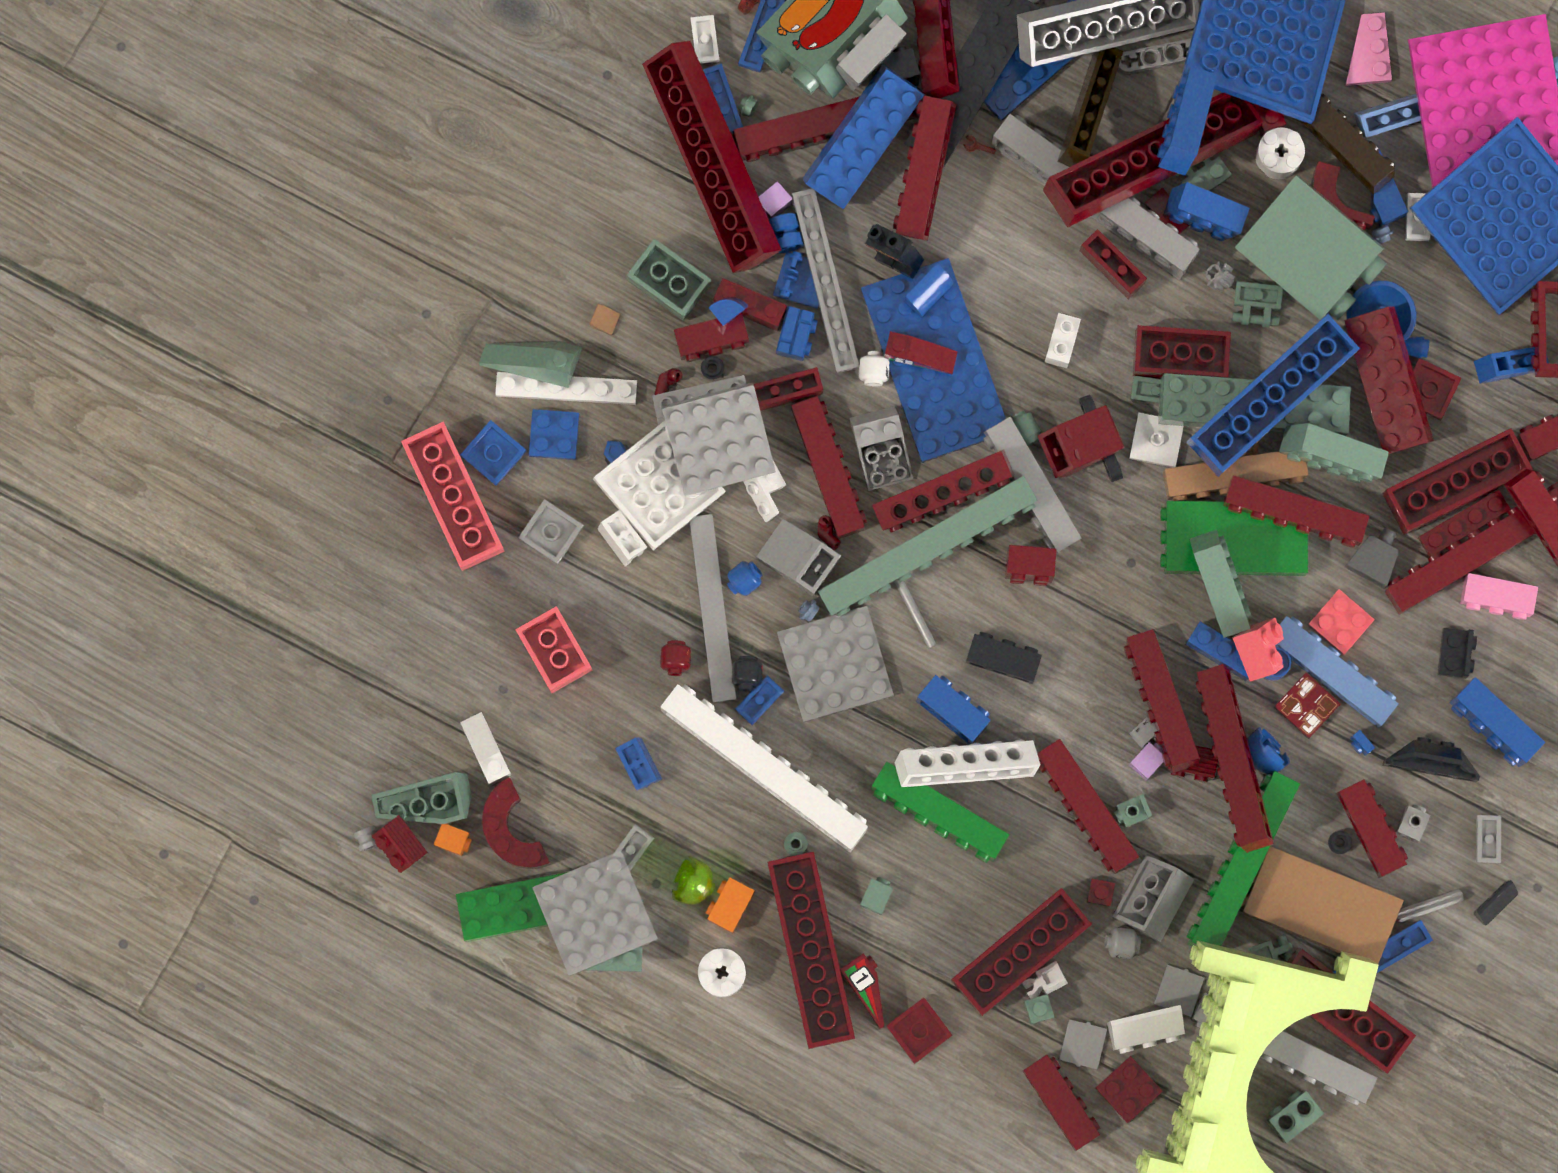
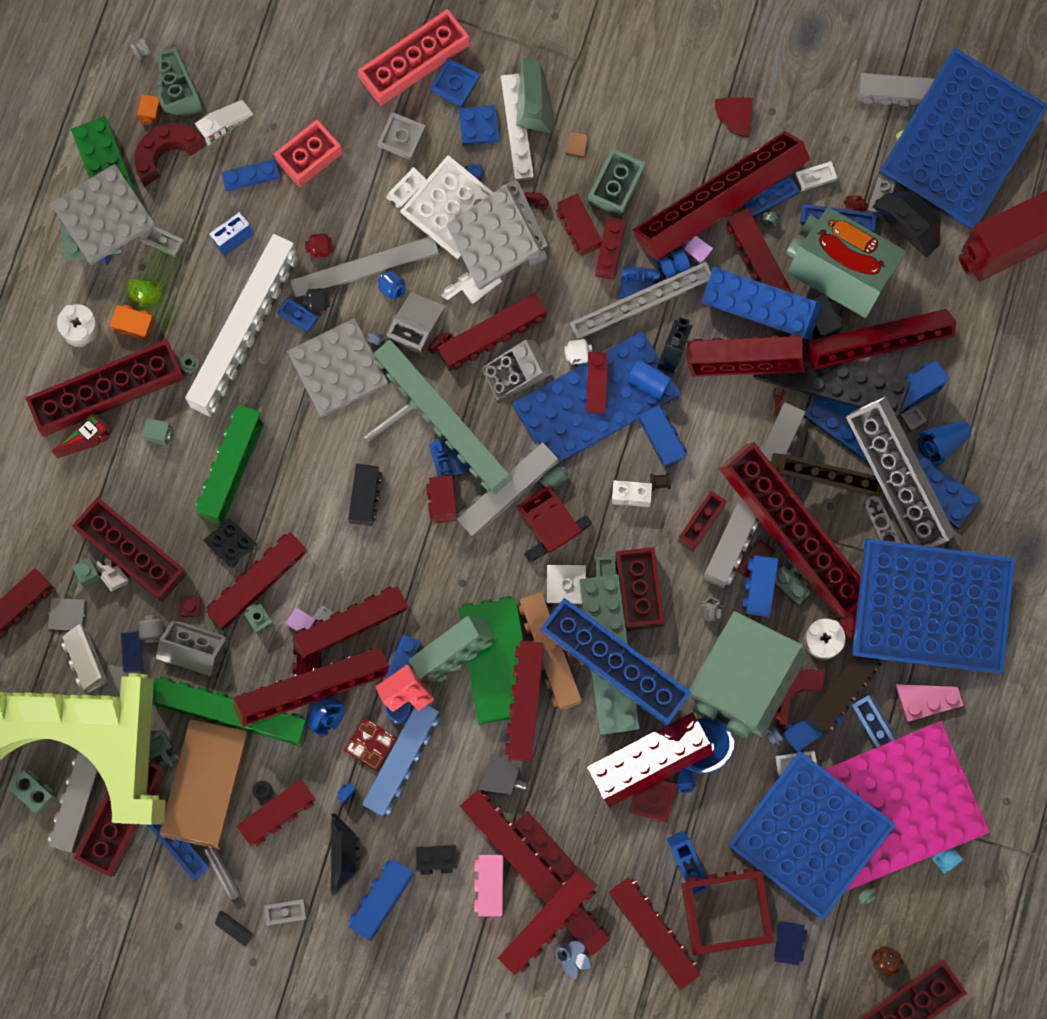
camera: 80 degrees right, 5 degrees down
(399, 844) = (138, 69): dark red brick -> none
(563, 728) = (250, 175): none -> blue plate
(604, 119) = (736, 114): none -> dark red brick
(709, 361) = (555, 226): black plate -> none
(727, 309) = (599, 226): blue brick -> none
(788, 389) = (547, 287): dark red brick -> none
(795, 334) = (594, 287): blue brick -> none
(869, 51) = (828, 287): light grey slope -> none
(886, 509) = (516, 454): dark red brick -> none
(919, 1030) = (56, 484): dark red plate -> none
(953, 709) = (314, 461): blue brick -> none
(957, 770) = (262, 472): white brick -> none
(979, 554) = (446, 460): none -> blue hinge
(998, 290) = (662, 436): none -> blue brick
(1032, 830) = (230, 542): none -> black hinge
(1052, 303) = (660, 481): none -> dark brown bush
(1128, 1089) = (35, 656): dark red plate -> none
(1145, 970) = (132, 652): none -> clear blue plate
(1186, 120) = (828, 546): blue brick -> none
(1257, 296) = (701, 643): sand green plate -> none
(1333, 452) = (579, 726): sand green brick -> none
(1341, 622) = (444, 760): coral plate -> none
(1413, 823) = (287, 847): light grey brick -> none
(1456, 481) = (578, 832): dark red brick -> none

